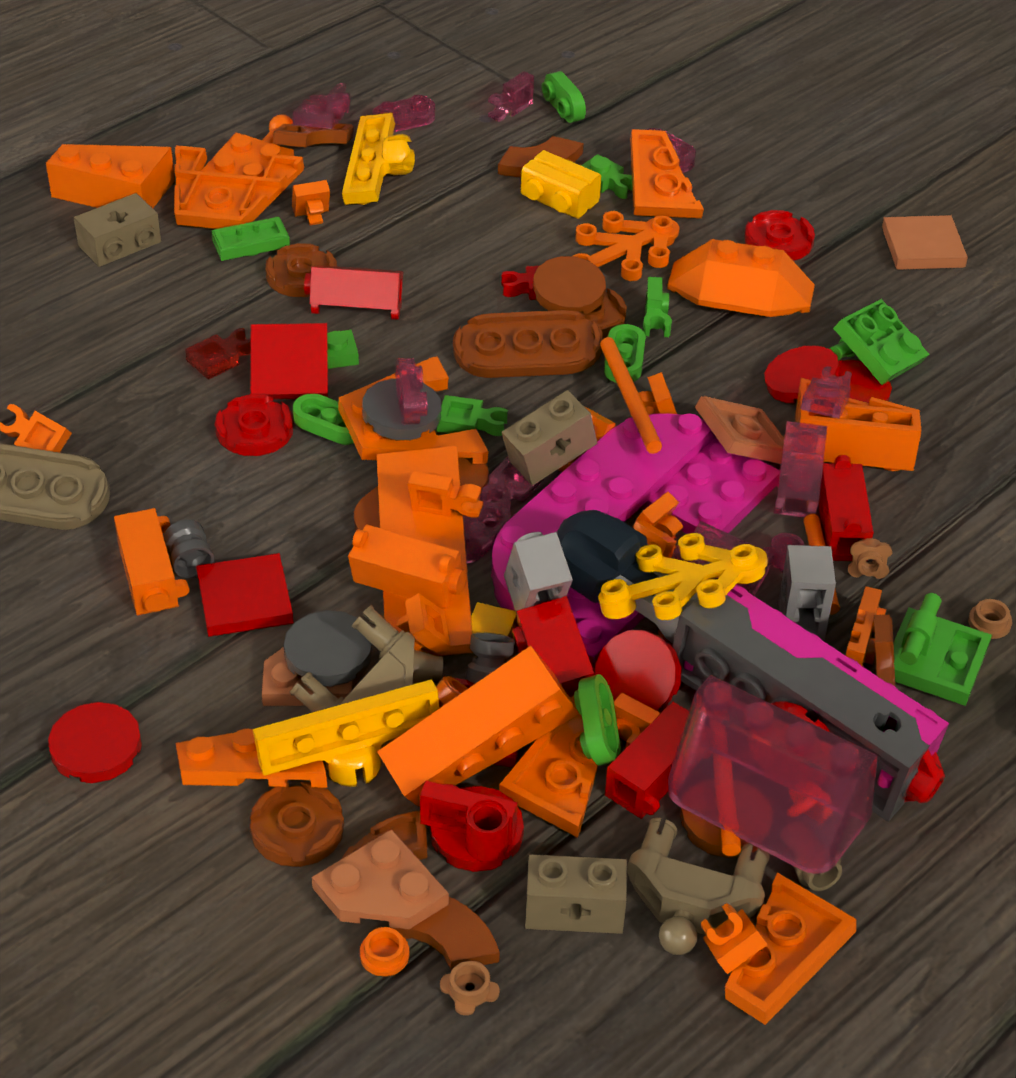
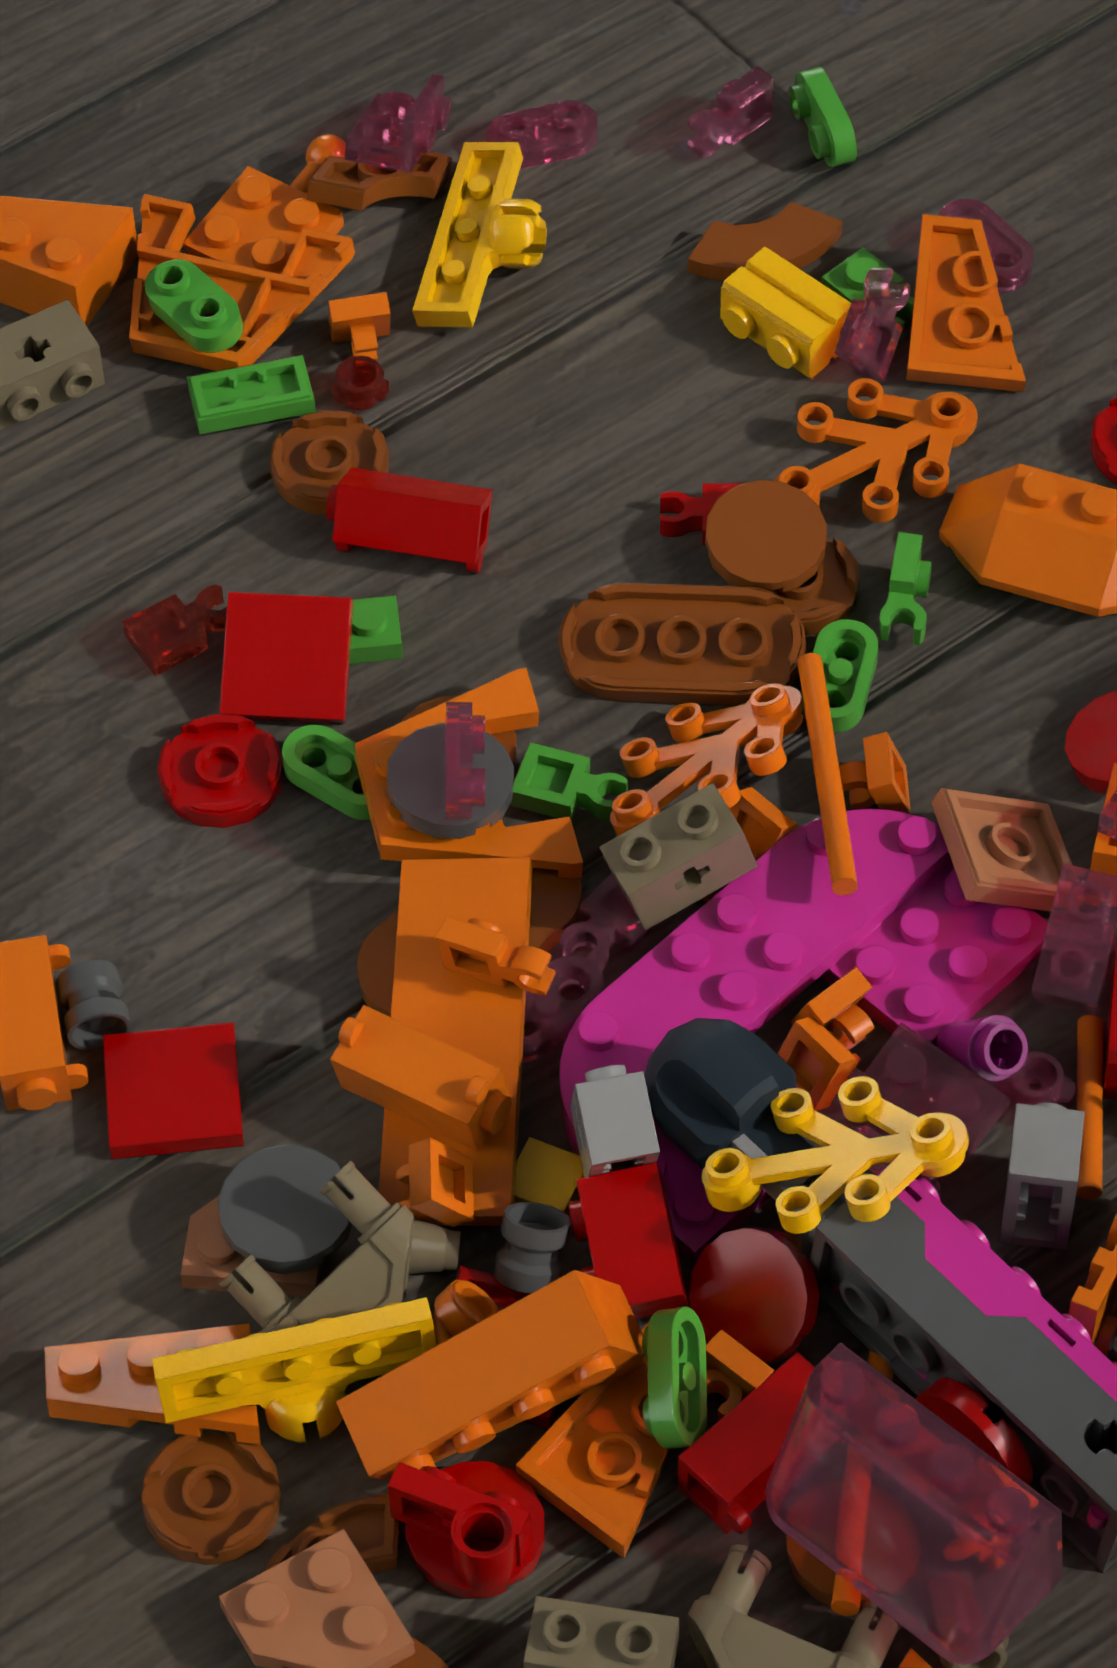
camera: 10 degrees right, 10 degrees up
(212, 193) = (184, 297): none -> bright green plate
(315, 230) = (359, 383): none -> clear red plate
(587, 373) = (768, 714): none -> orange plant
(610, 188) = (870, 328): none -> clear pink plate
(757, 527) = (986, 1046): none -> magenta cone

